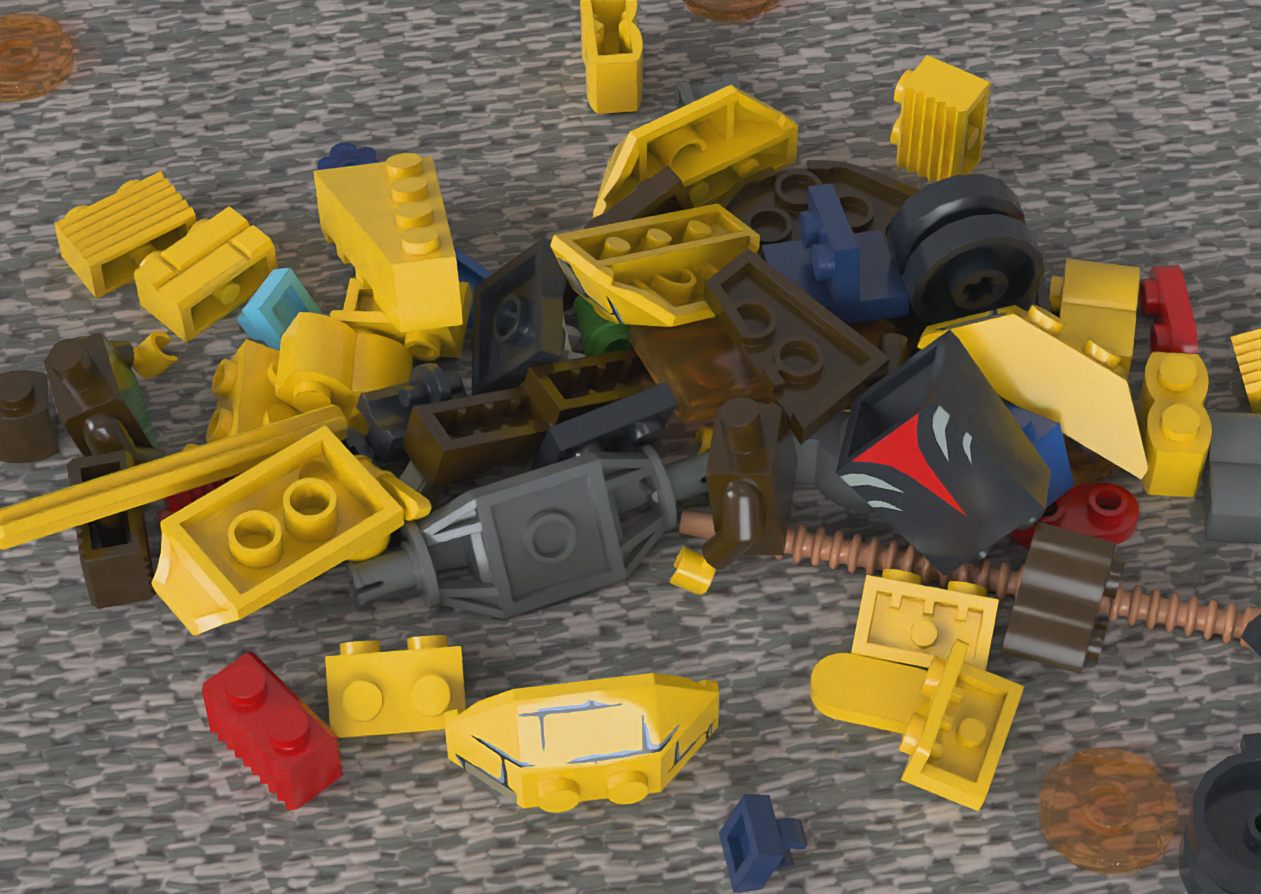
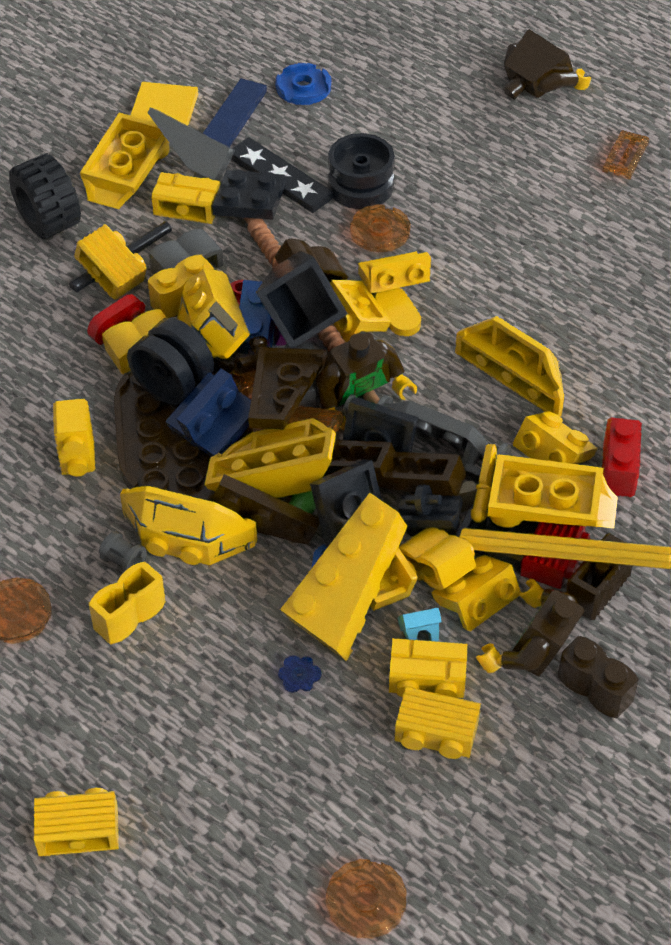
camera: 130 degrees left, 0 degrees up
(758, 842) = (503, 297): dark blue tile -> none

